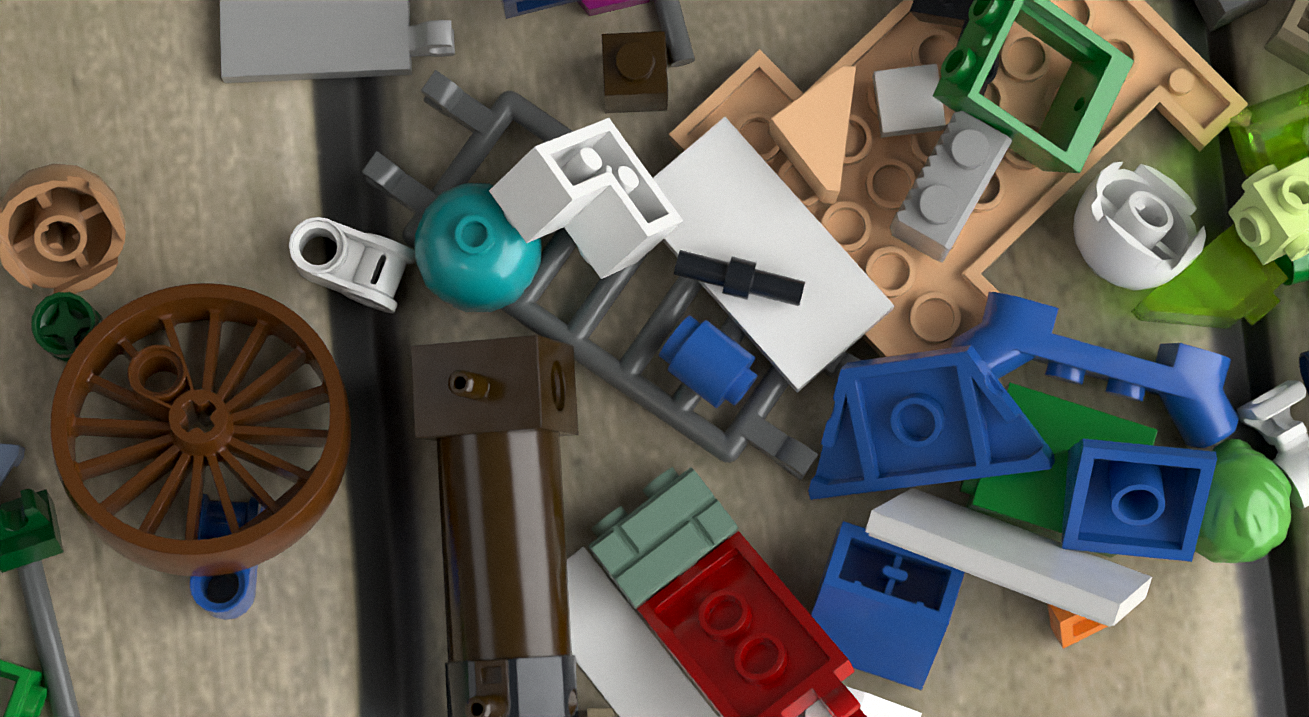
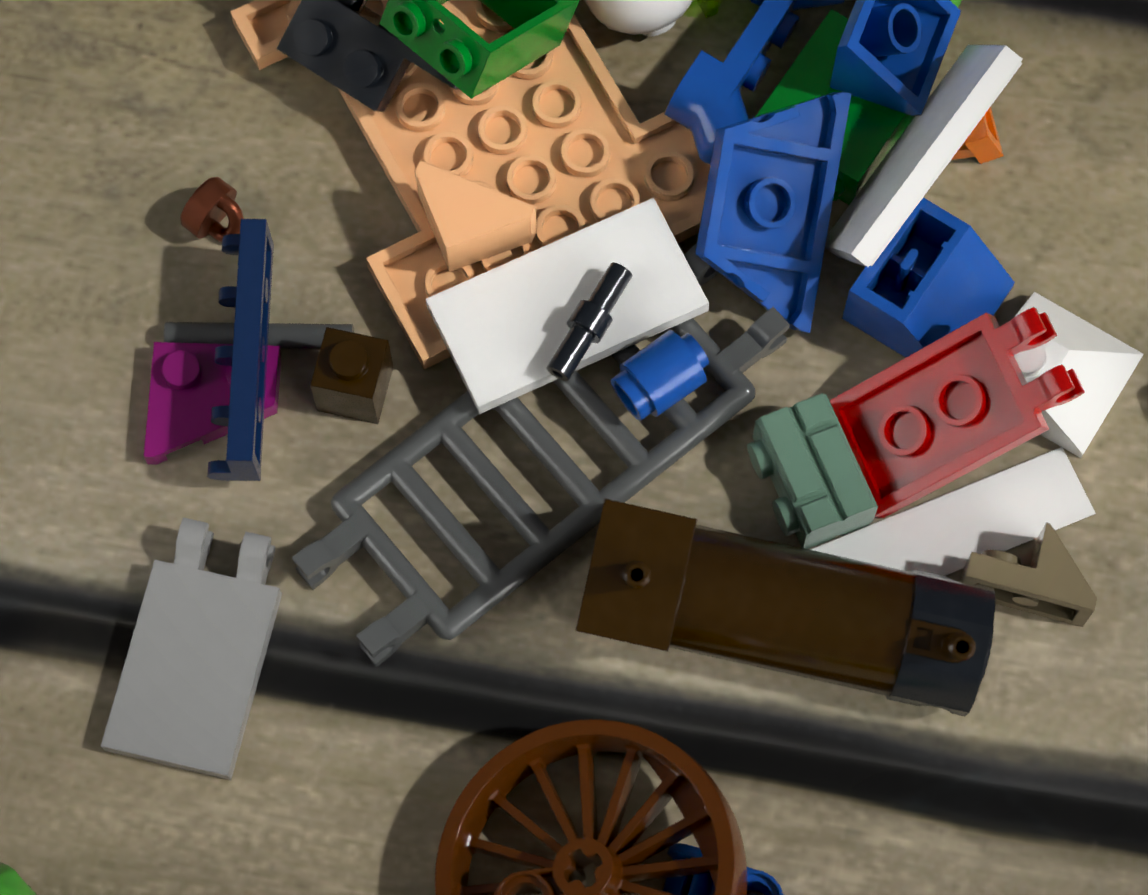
camera: 70 degrees left, 10 degrees down
(355, 262) = (465, 685): white piece -> none
(472, 251) = (483, 561): teal cylinder -> none
(594, 191) = (473, 427): white brick -> none
(907, 101) = (459, 136): white tile -> none
(949, 185) = (556, 117): light grey brick -> none

